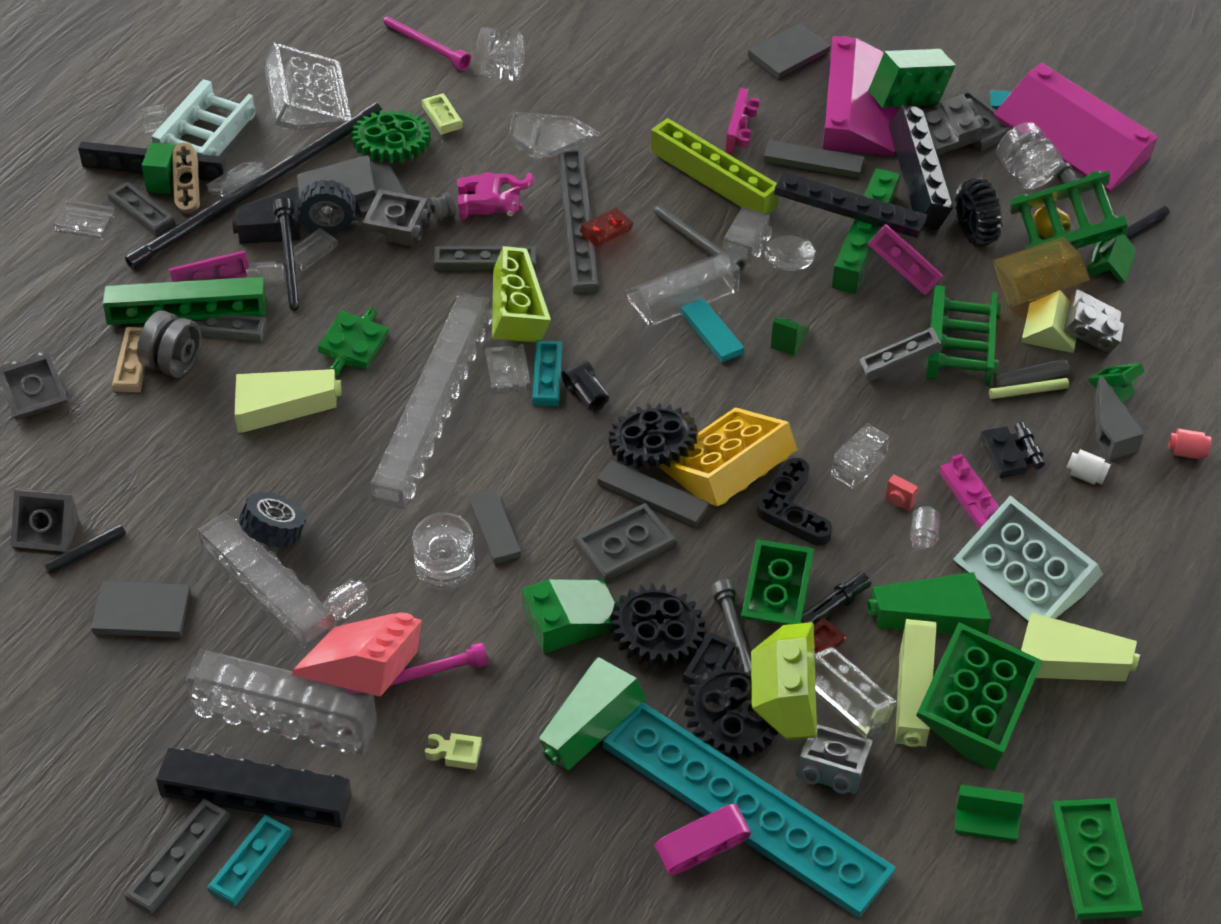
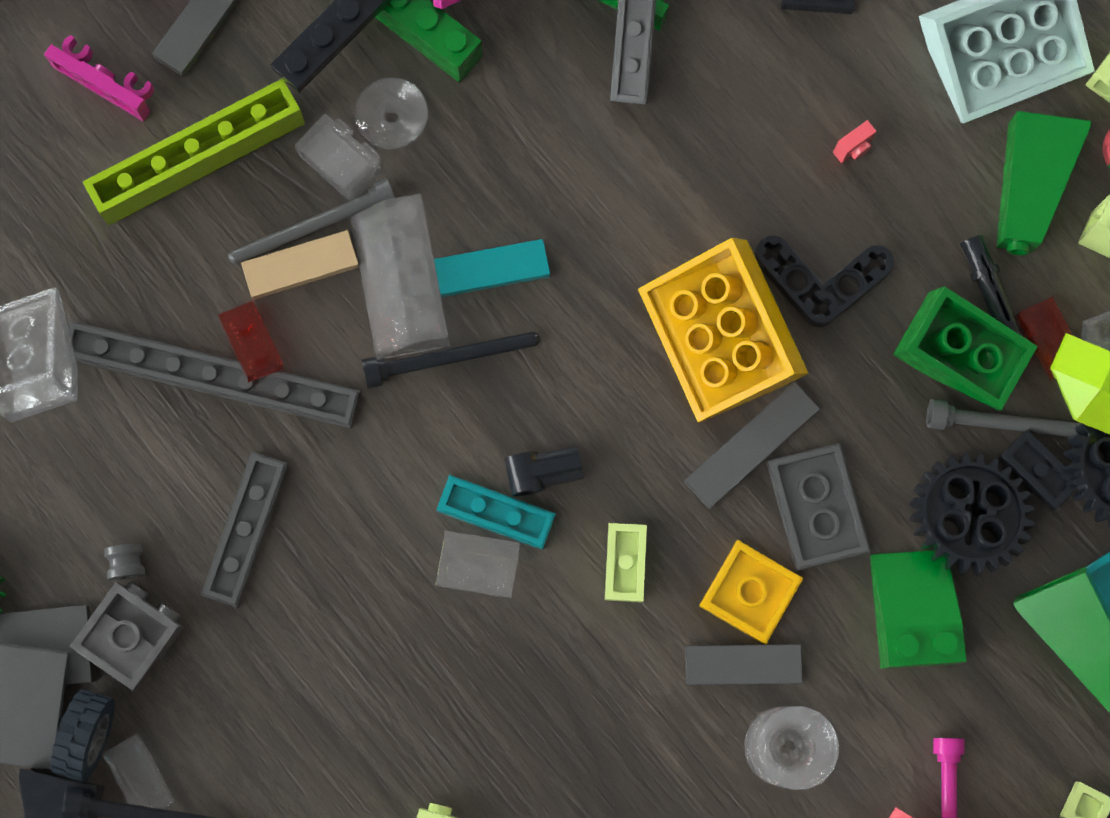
camera: 75 degrees left, 30 degrees up
(353, 340) = (347, 762): green plate -> none
(431, 401) = (500, 682): clear brick -> none
(487, 194) = (116, 486): dark pink animal -> none
(517, 299) = (361, 513): lime wedge -> none
(540, 443) = (625, 562): none -> yellowish green plate
(548, 519) = (751, 592): none -> yellow tile
(614, 289) = (378, 370): none -> black piece
(653, 436) = (639, 431): black gear -> none
(668, 240) = (300, 265): none -> tan tile
(787, 335) = (536, 169): green slope -> none
(860, 455) = (783, 166): clear brick -> none
(925, 527) = (916, 136): clear brick -> none
(969, 490) = (871, 57): dark pink plate -> none

